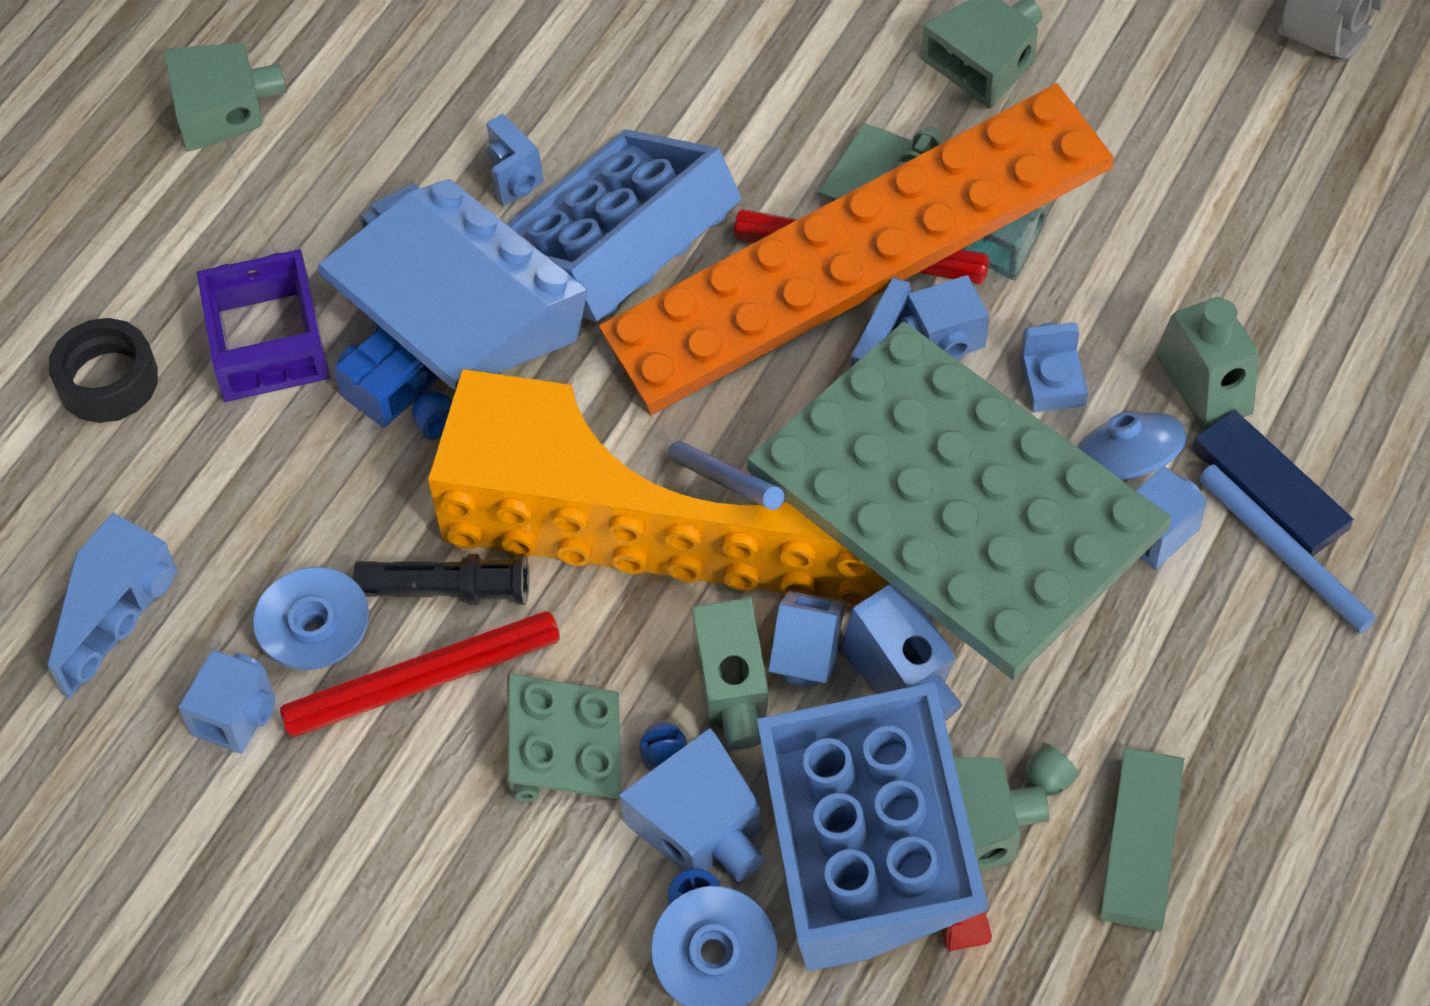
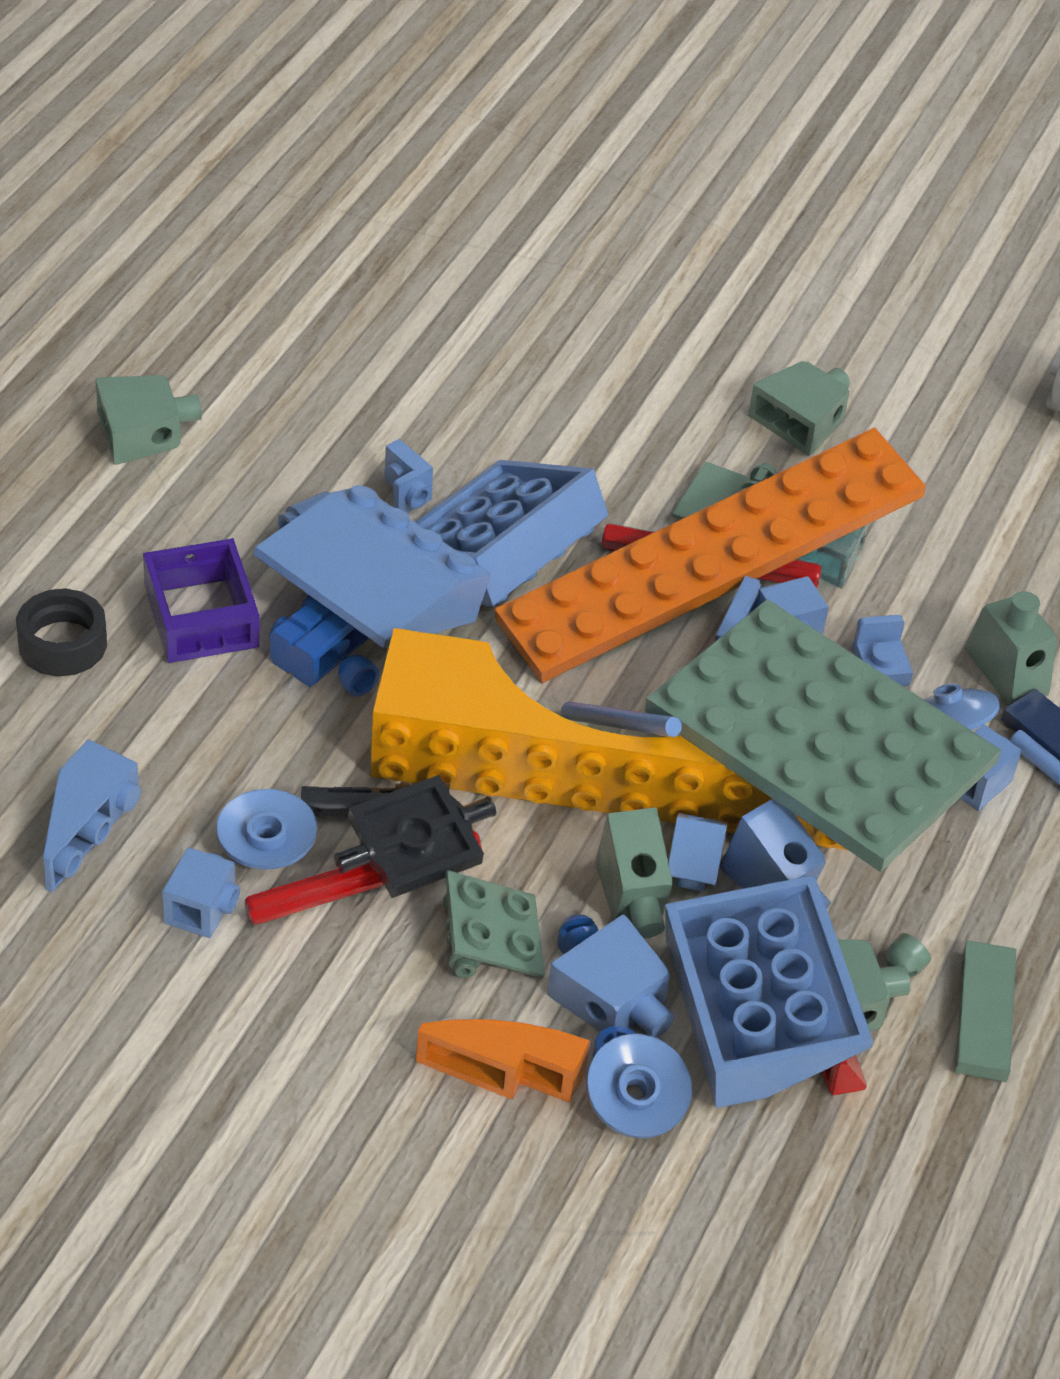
camera: 10 degrees left, 10 degrees down
(475, 629) = (415, 835): none -> black plate
(562, 909) = (505, 1055): none -> orange slope

